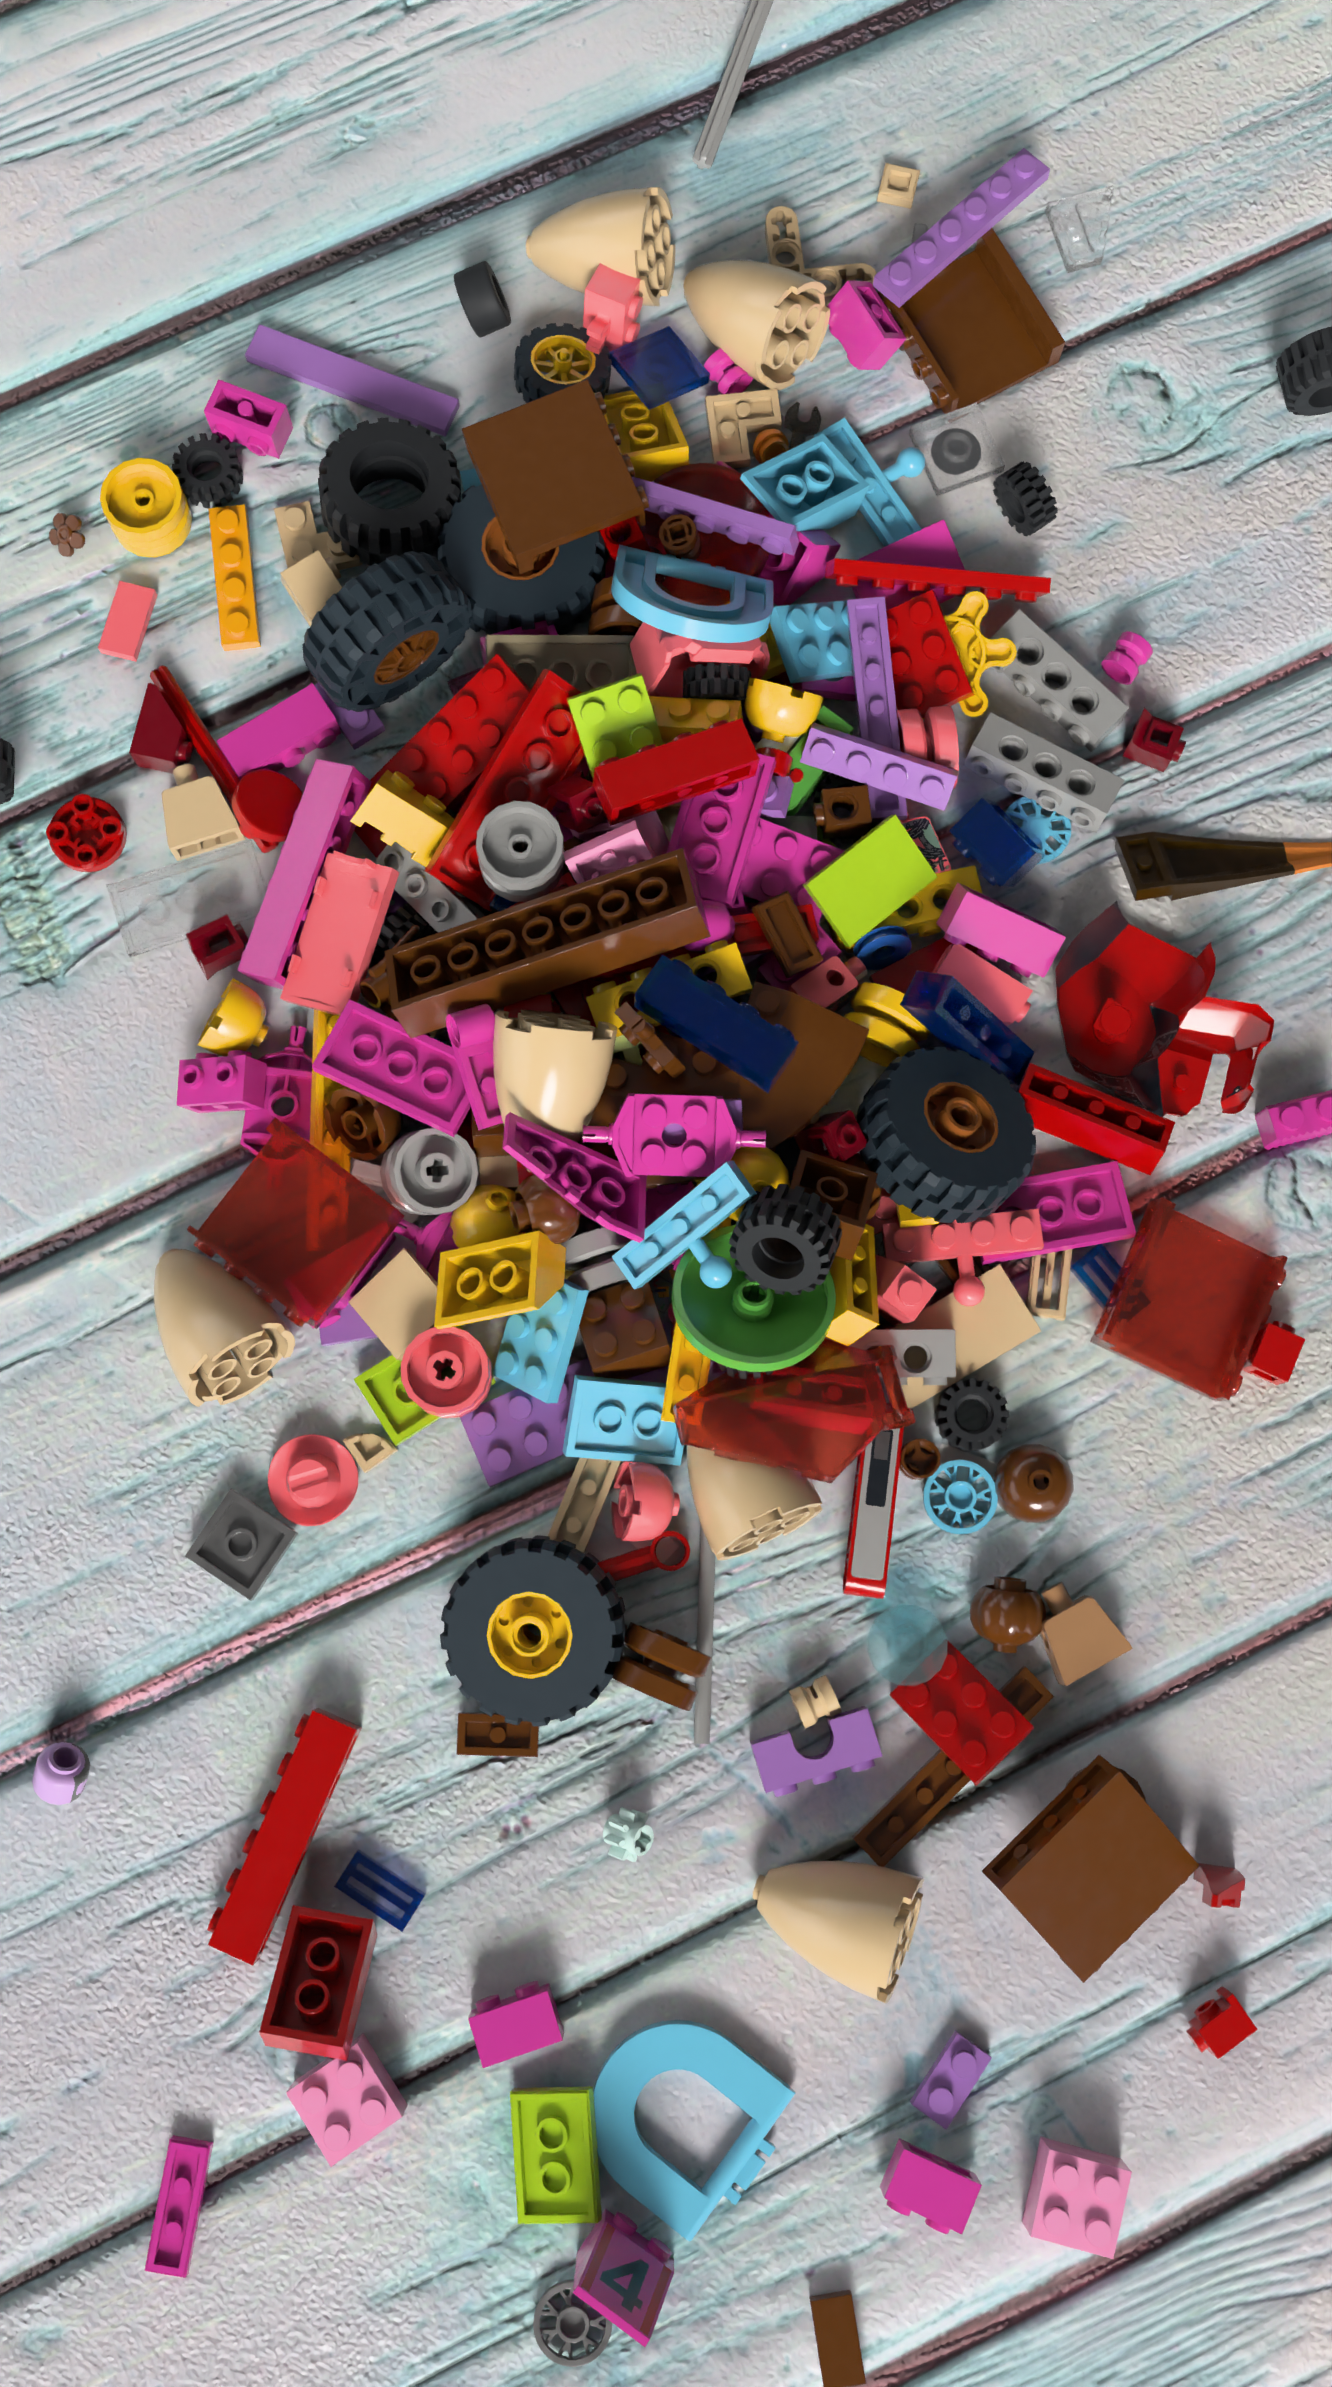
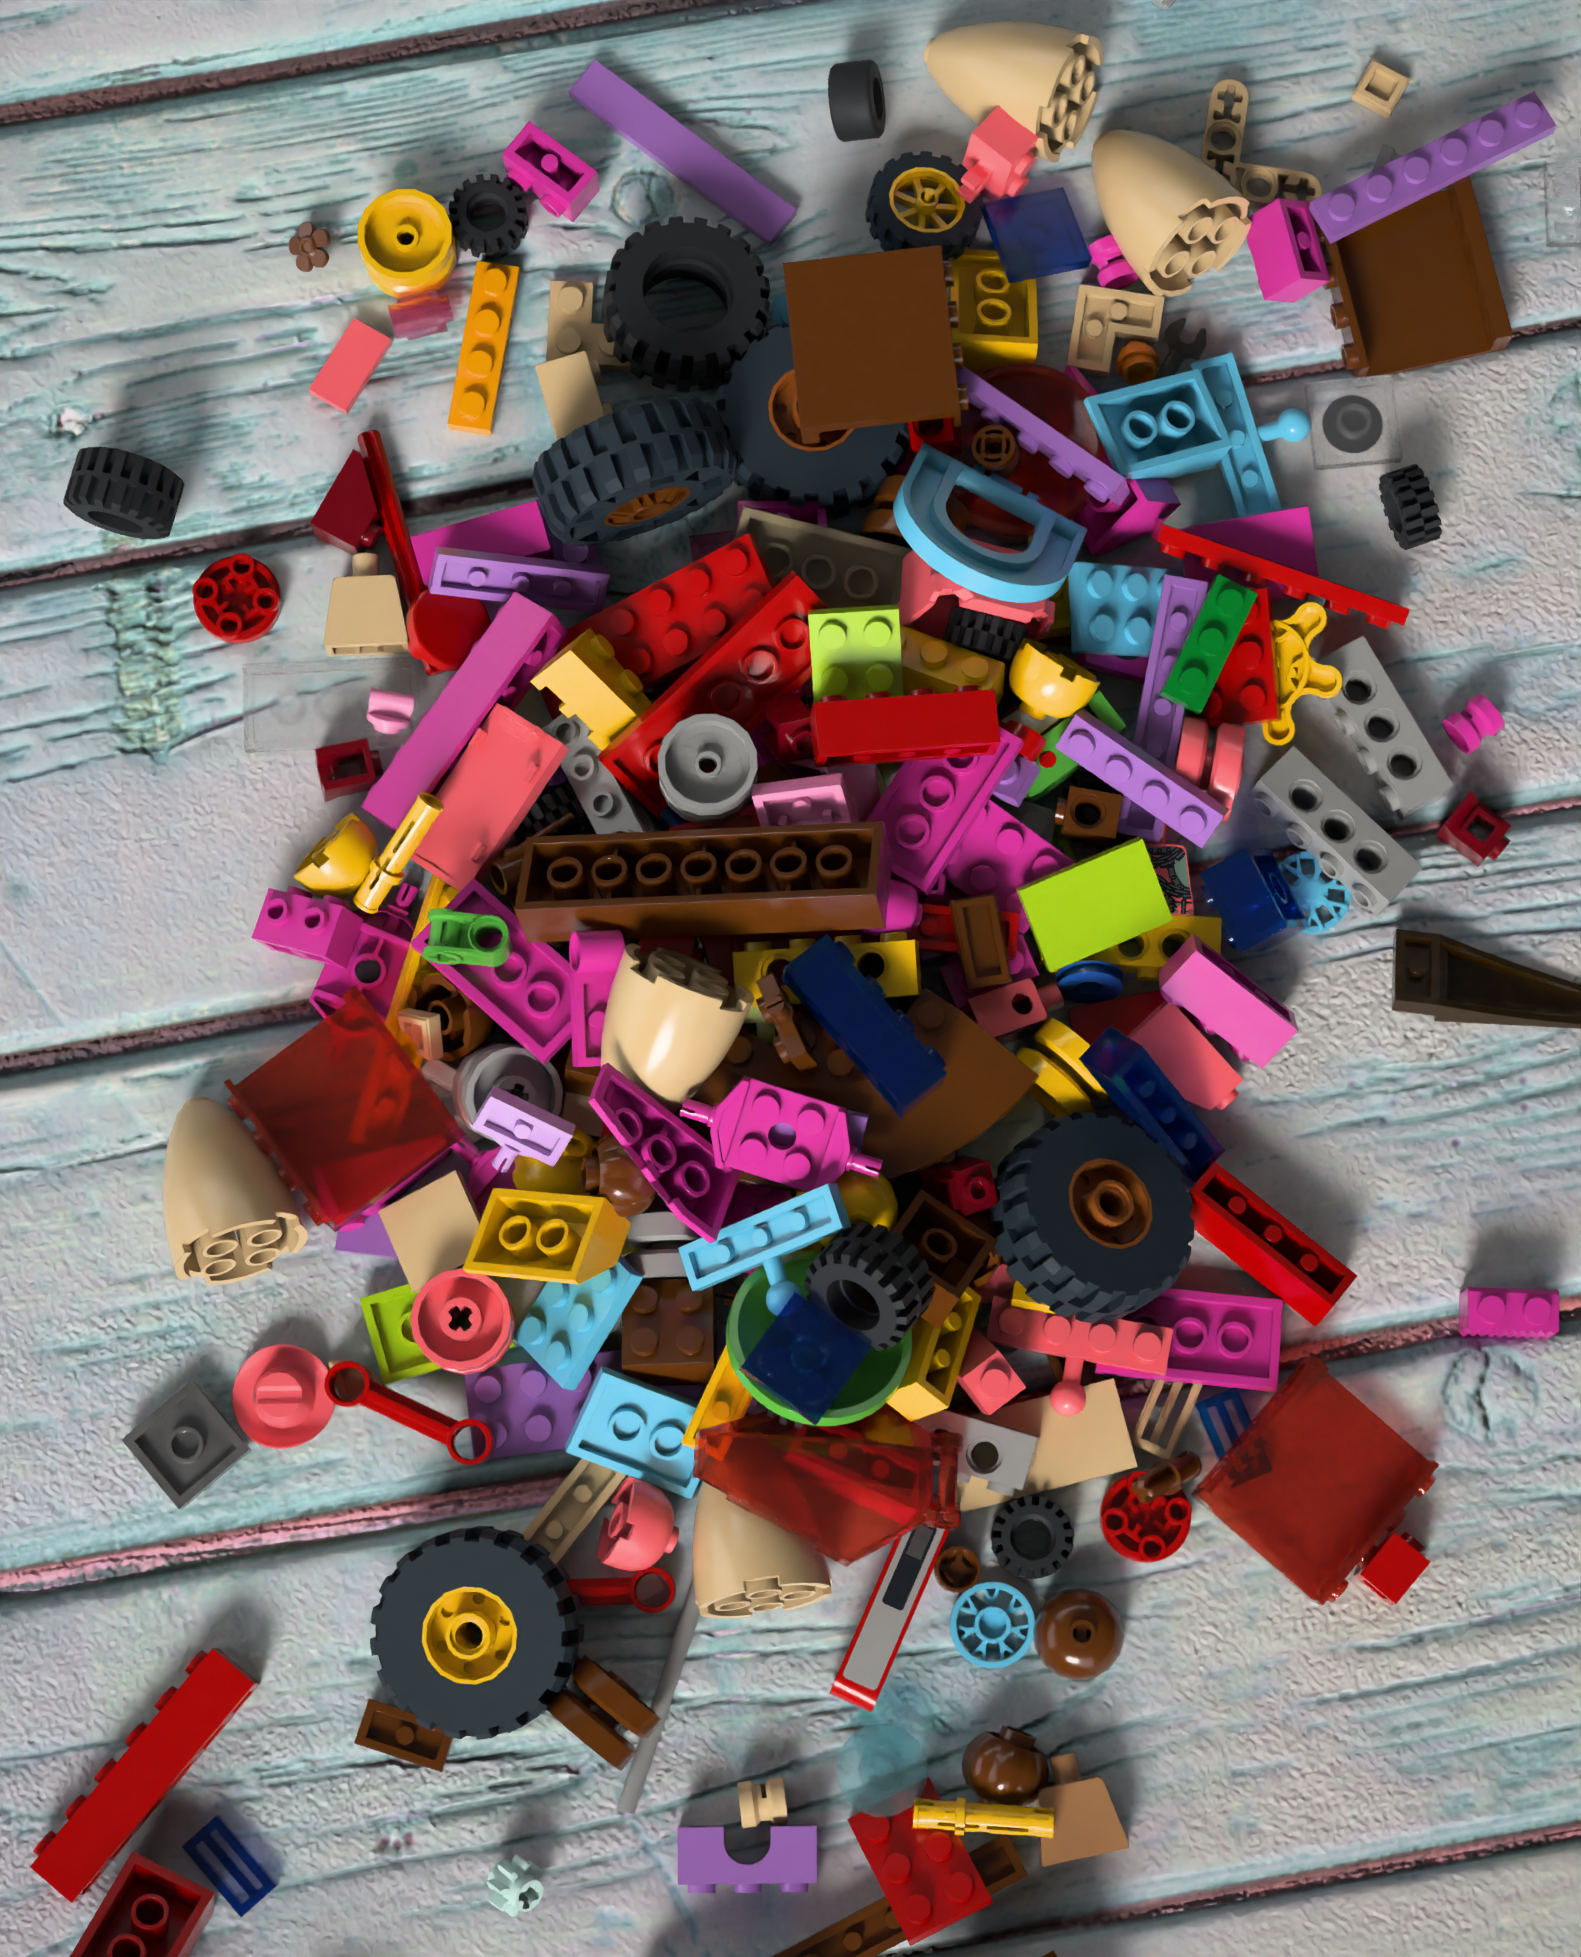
camera: 20 degrees right, 0 degrees up
(174, 563) = (420, 315): none -> clear pink brick
(239, 886) = (389, 710): none -> bright pink plate
(275, 1013) = (389, 866): none -> yellow pin
(297, 751) = (500, 575): none -> medium lavender plate
(344, 1140) = (424, 1031): none -> tile
(354, 1048) = (457, 935): none -> bright green piece
(423, 1462) = (409, 1413): none -> red piece
(450, 1195) = (521, 1129): none -> lavender plate
(750, 1315) = (805, 1358): none -> clear blue plate
(899, 645) = (1208, 644): none -> green plate
(998, 1661) = (980, 1817): none -> yellow pin
(1058, 1371) = (1142, 1529): none -> red tile
(1069, 1331) = (1167, 1476): none -> reddish brown axle
(1142, 1019) = (1355, 1153): red piece -> none

